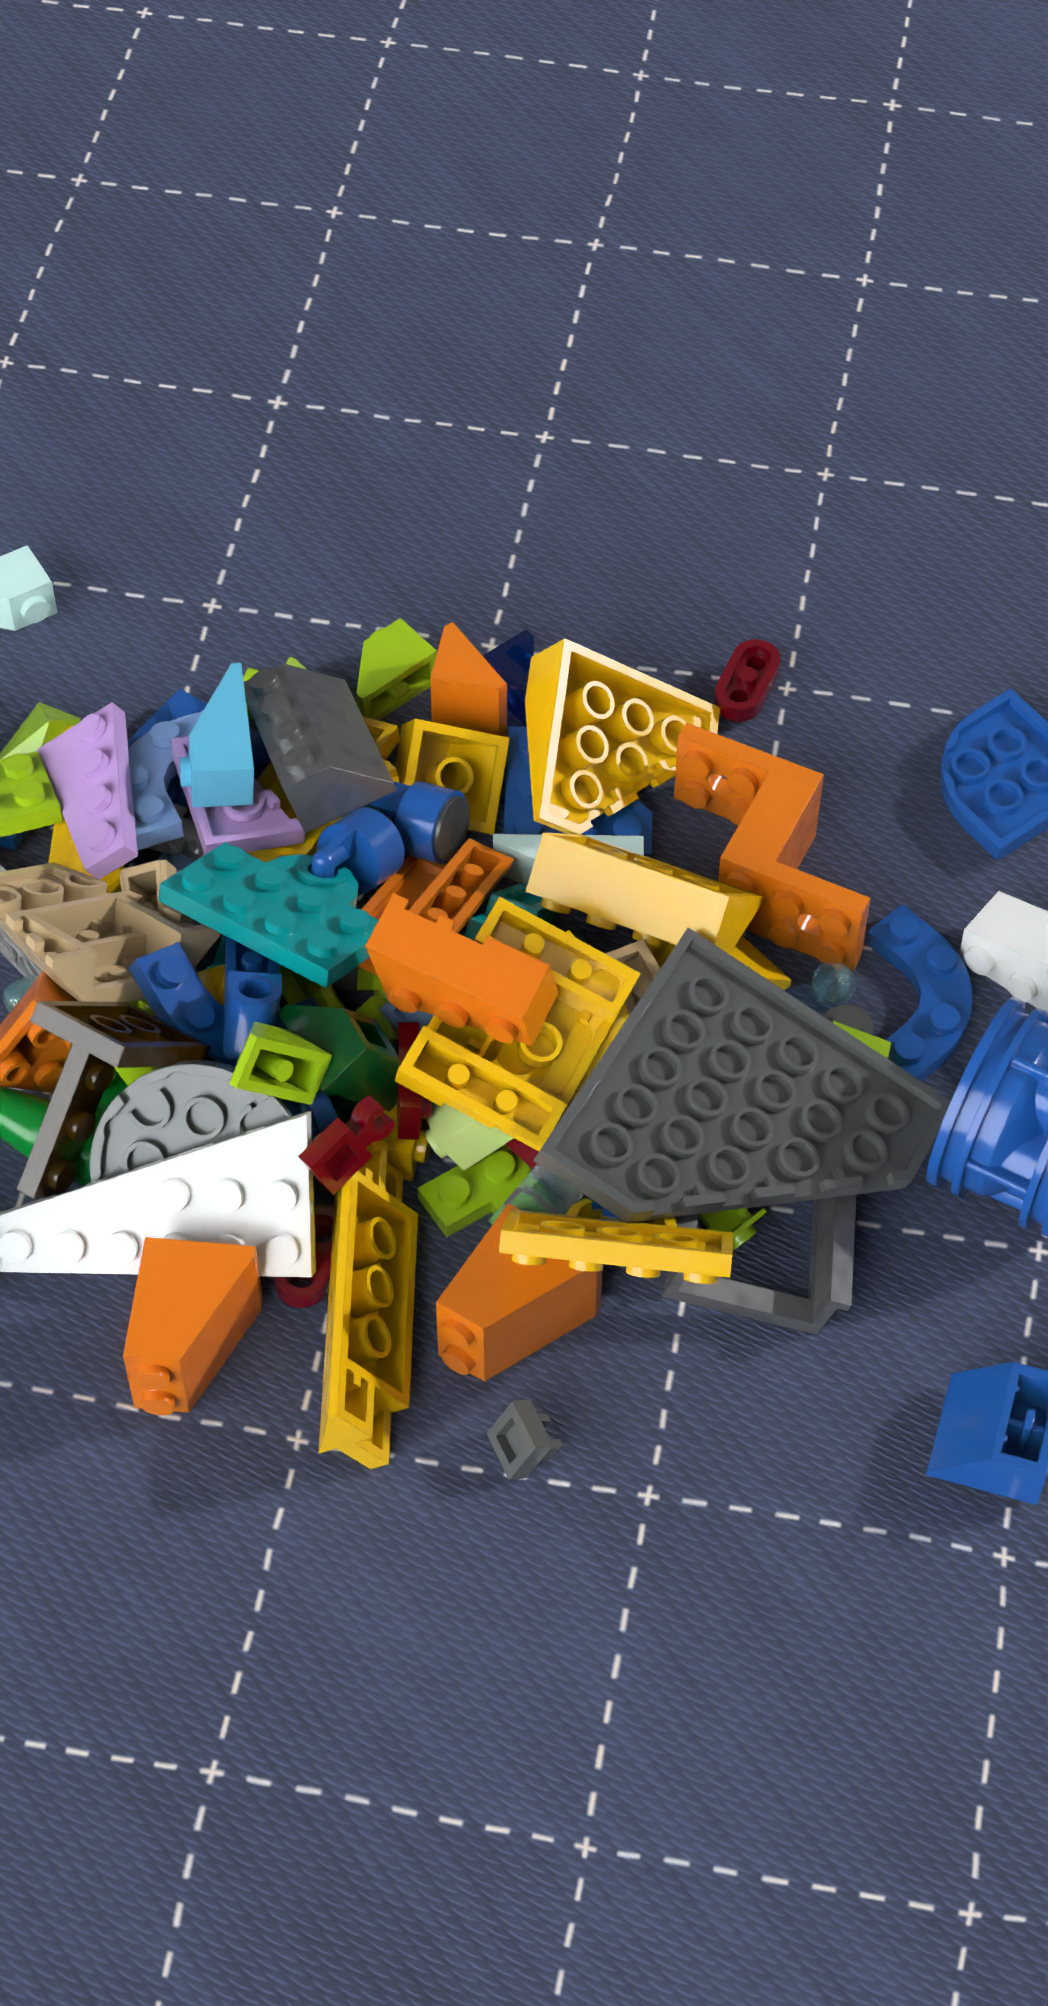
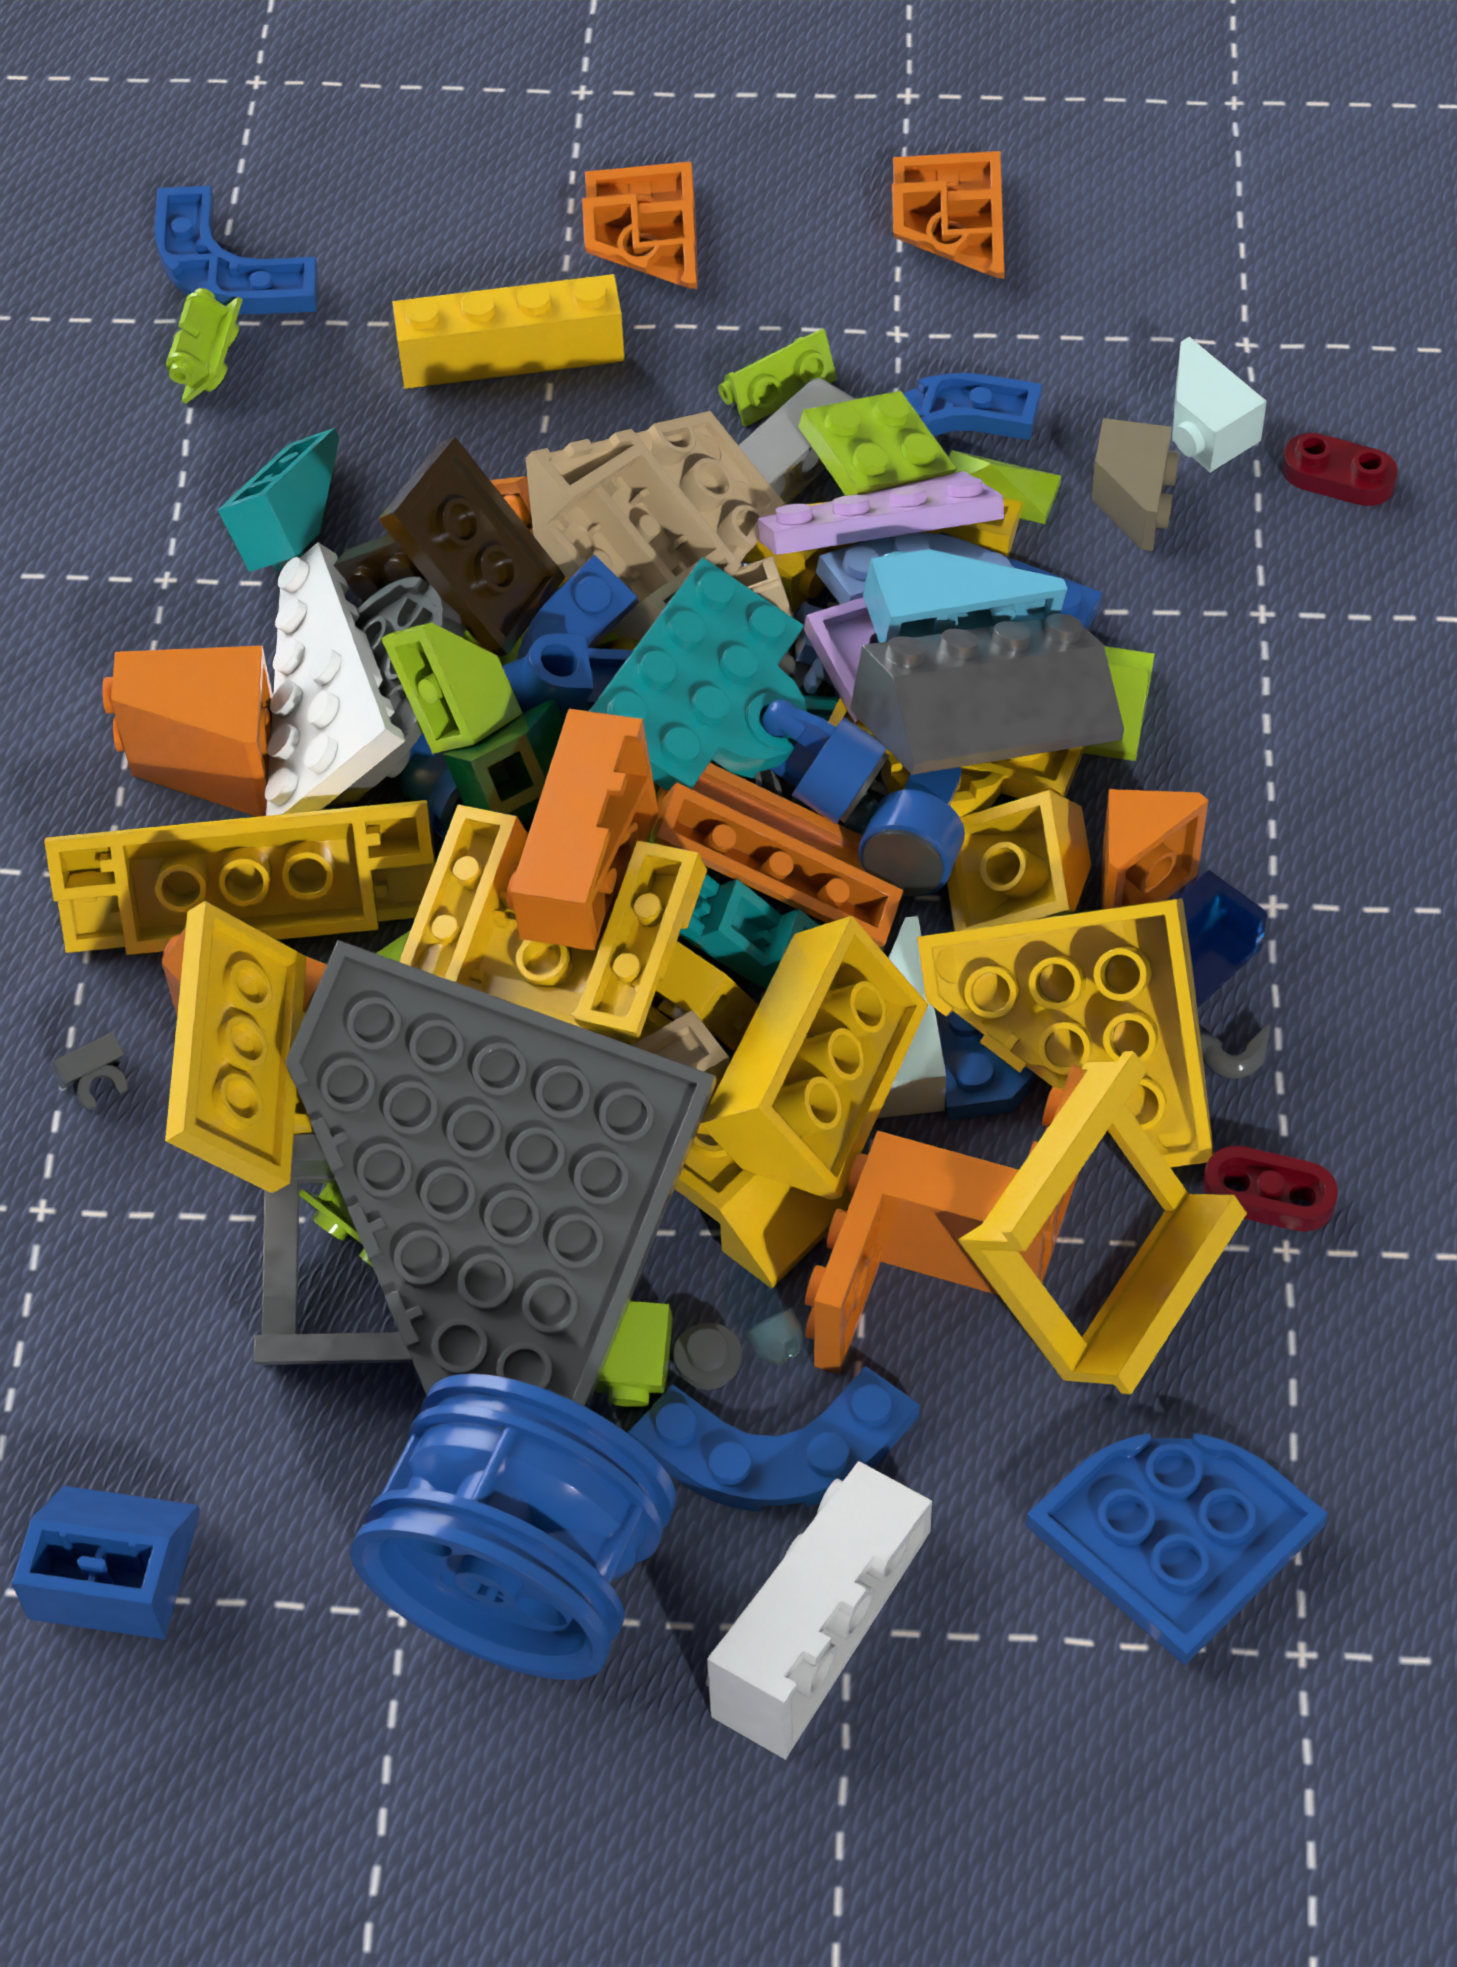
camera: 85 degrees right, 0 degrees up
(68, 650) = (1131, 475): none -> dark tan slope
(91, 525) = (1339, 469): none -> dark red plate
(342, 1147) = (362, 784): dark red plate -> none
(393, 669) = (1181, 770): lime slope -> none
(800, 750) = (1161, 1275): none -> yellow piece

